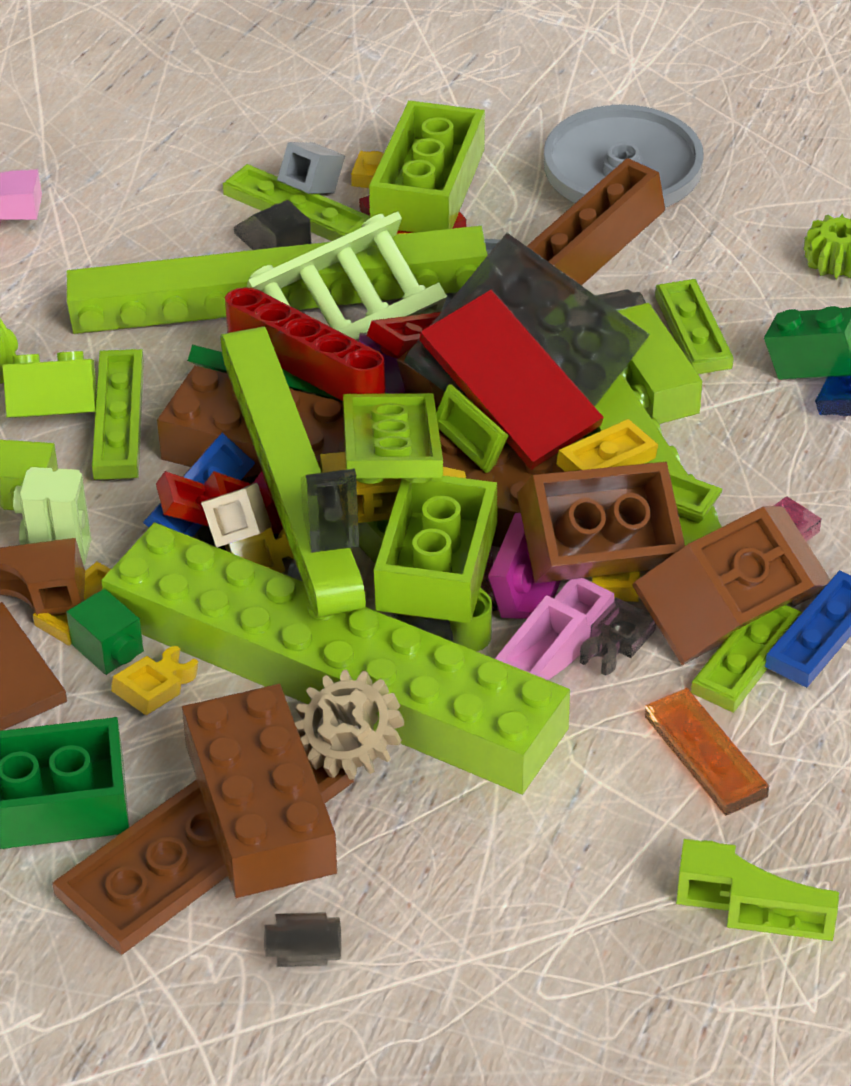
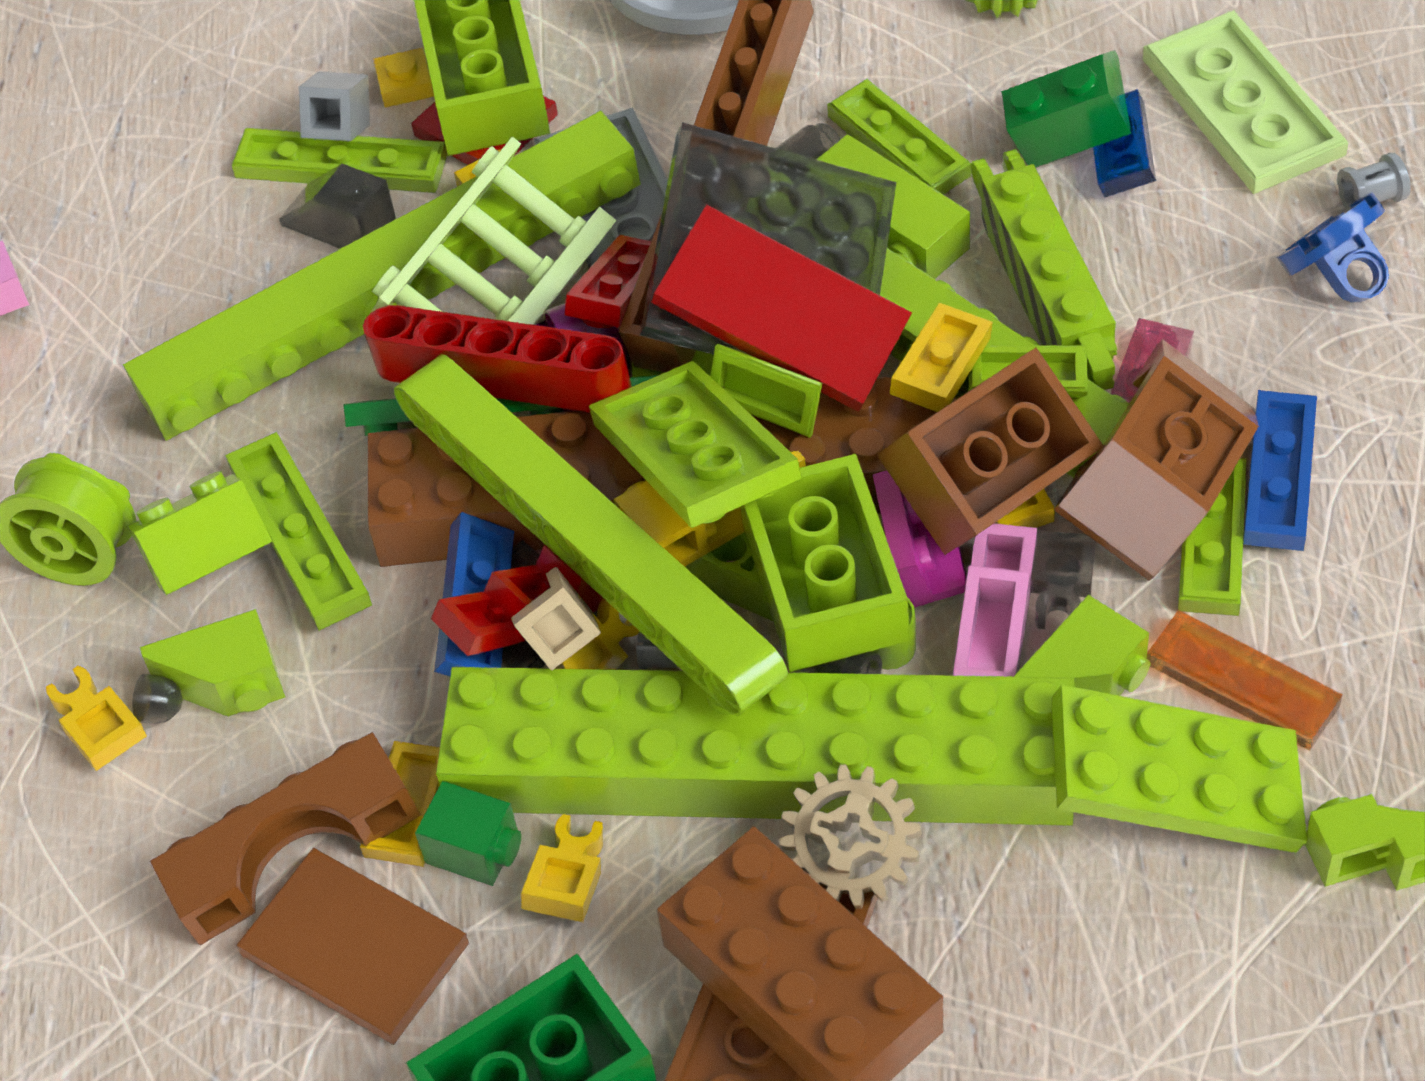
camera: 20 degrees left, 10 degrees up
(53, 508) = (314, 705): yellowish green brick -> none
(330, 510) = (698, 575): clear smoke slope -> none
(603, 690) = (1095, 649): none -> lime slope
(608, 777) = (1177, 769): none -> lime plate
(738, 436) = (1045, 264): none -> lime hinge

